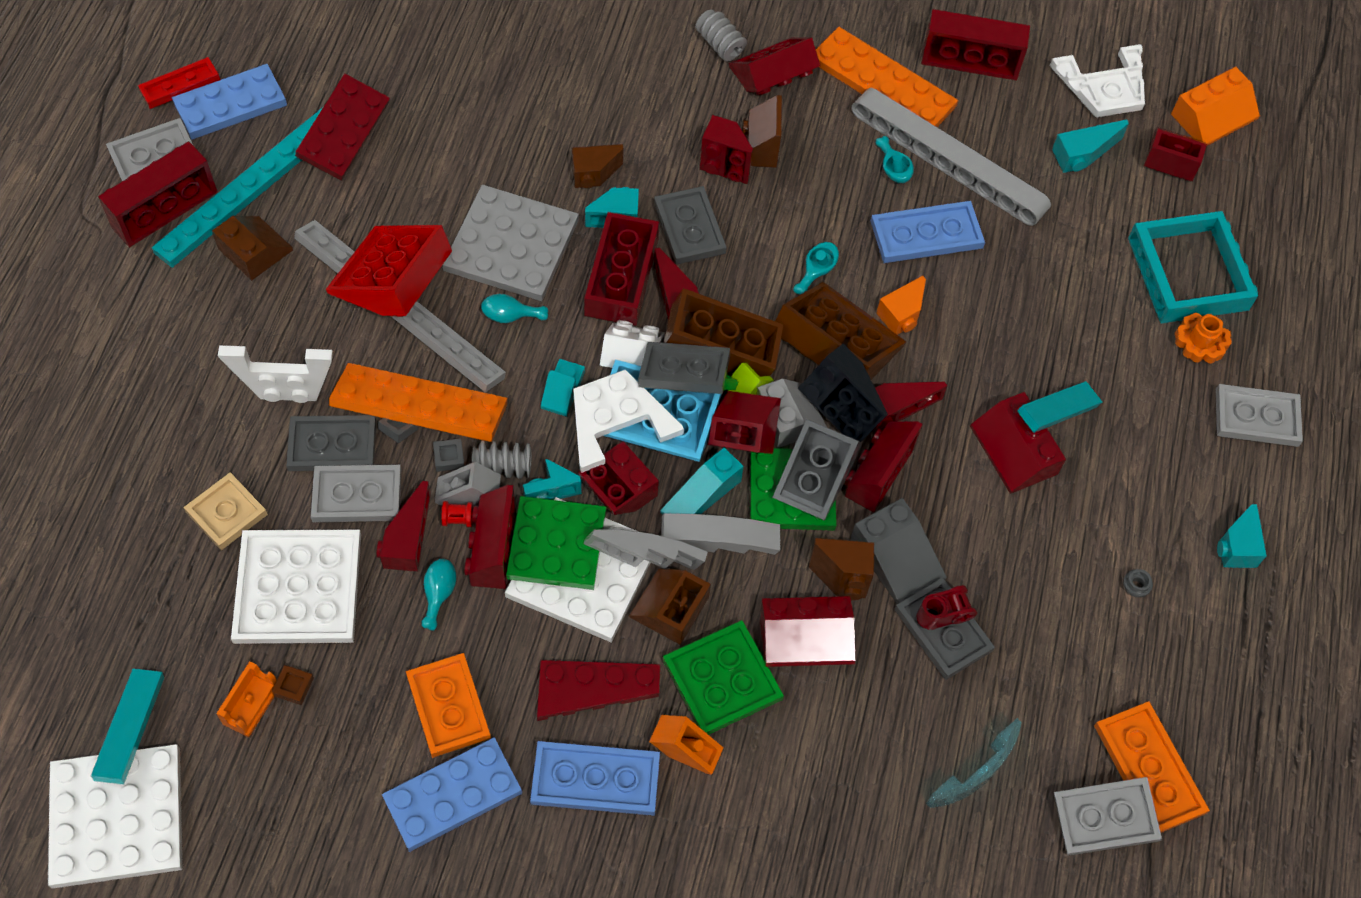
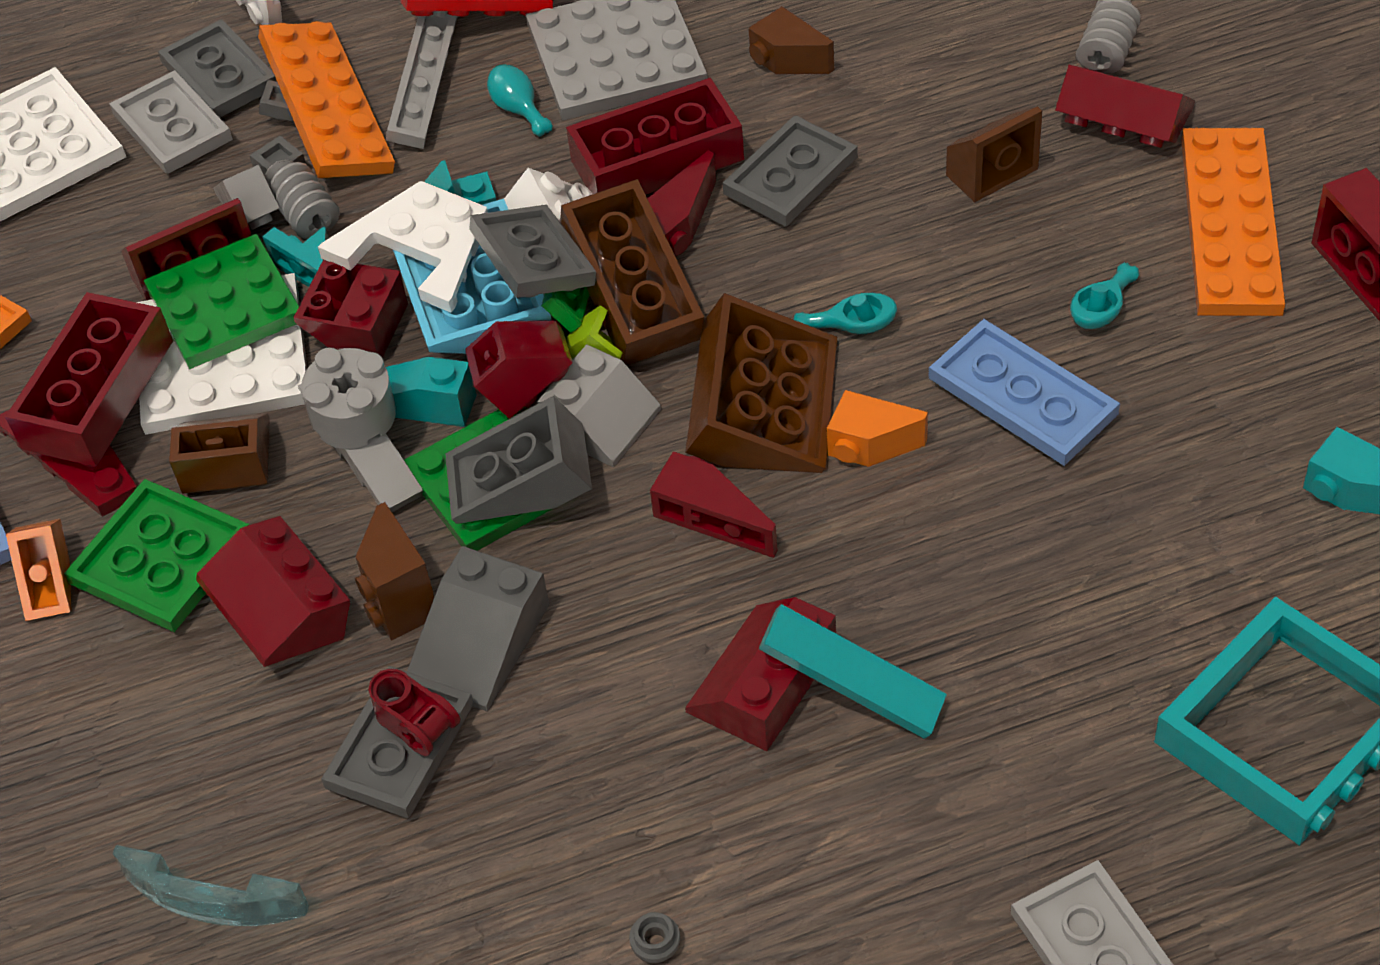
camera: 65 degrees right, 10 degrees down
(225, 511) = (73, 45): tan plate -> none
(405, 533) = (153, 182): dark red slope -> none
(438, 586) = (98, 247): teal piece -> none
(457, 514) = (203, 195): red bush -> none
(578, 640) = (90, 379): none -> dark red brick
(616, 200) = (749, 93): teal slope -> none
(635, 547) = (262, 365): light grey slope -> none
(712, 516) = (348, 397): none -> light grey brick
(726, 150) = (921, 125): dark red slope -> none
(845, 394) = (659, 414): black slope -> none
(882, 463) = (592, 540): dark red slope -> none
(951, 156) = (1177, 354): light grey beam -> none
(1203, 338) = (1170, 801): orange plant -> none

